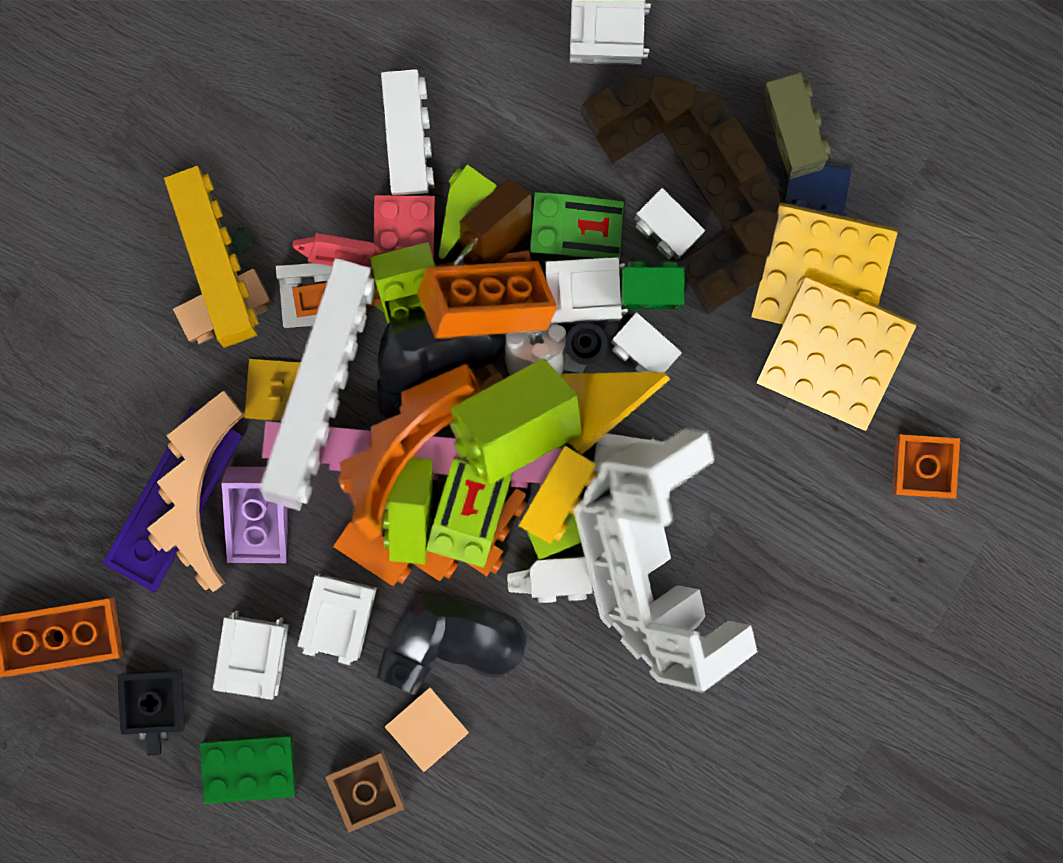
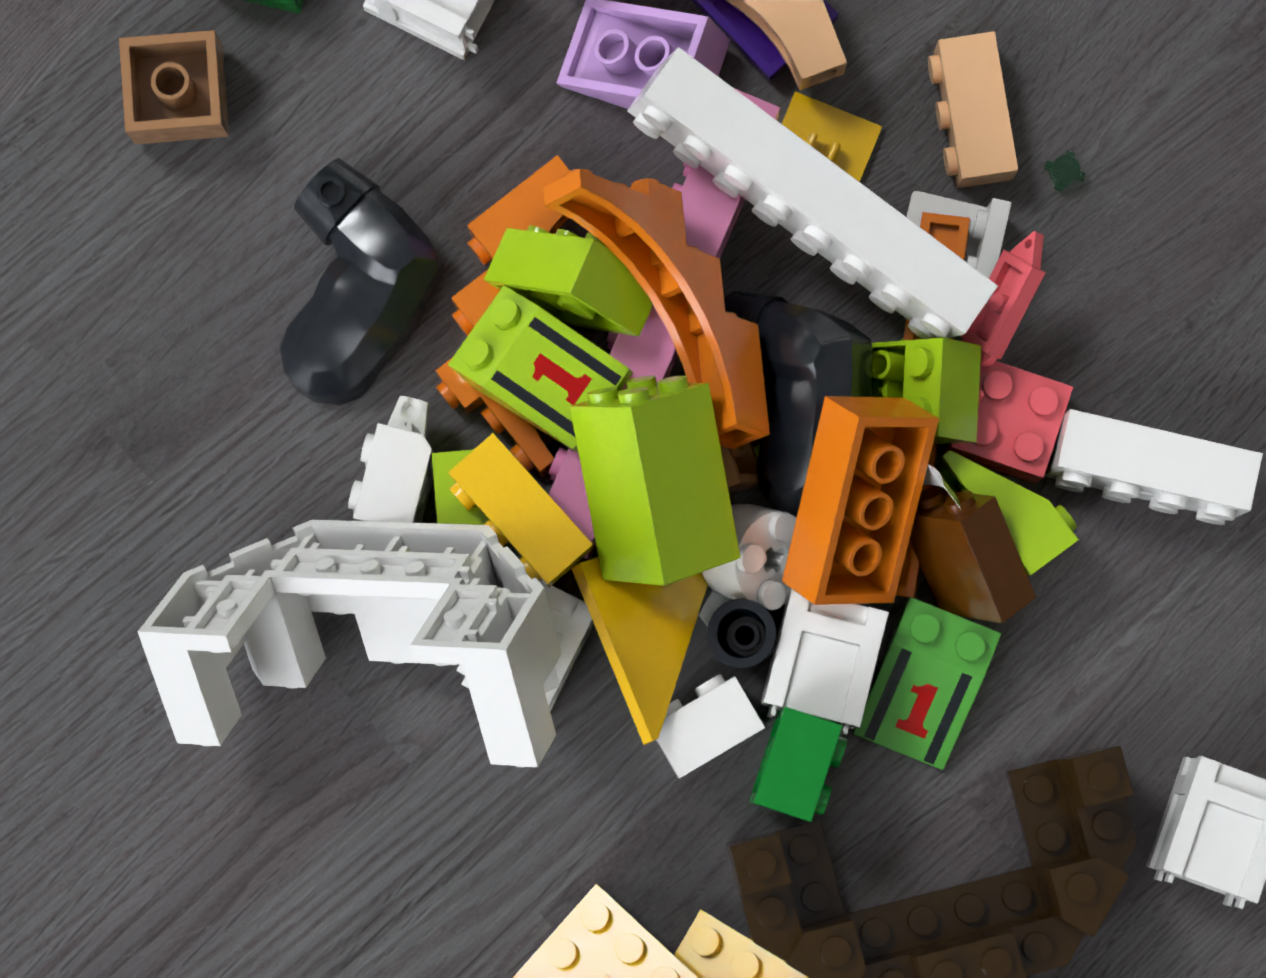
camera: 110 degrees right, 5 degrees down
(211, 257) = (1055, 111): yellow brick -> none
(337, 618) = (447, 126): white container -> none
(427, 729) = (236, 210): light nougat tile -> none
(668, 225) = (885, 825): white brick -> none

